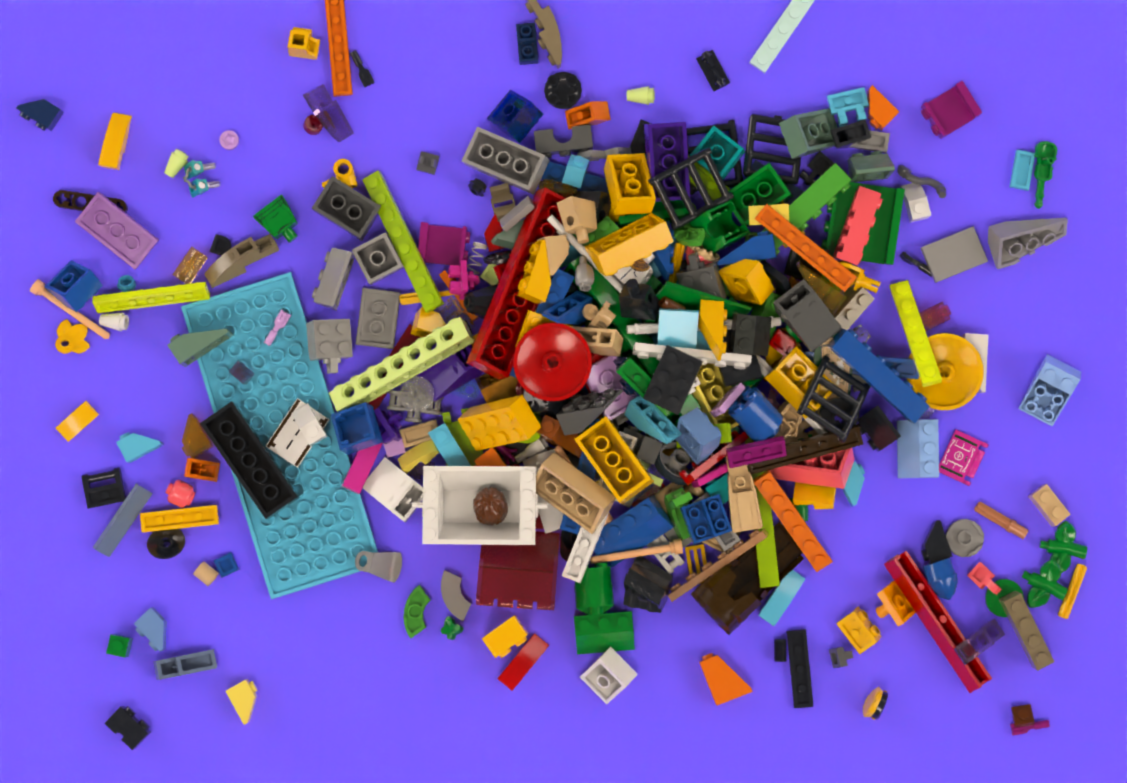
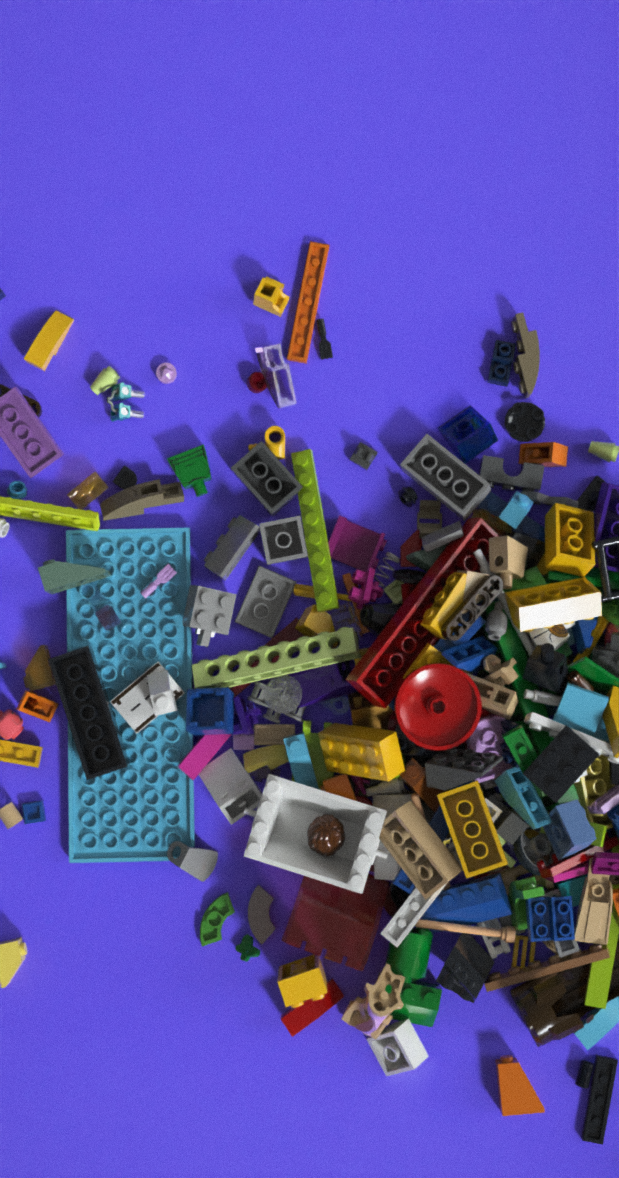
camera: 15 degrees right, 0 degrees up
(561, 270) = (474, 610): none -> dark brown beam
(573, 649) = (372, 1012): none -> tan hips

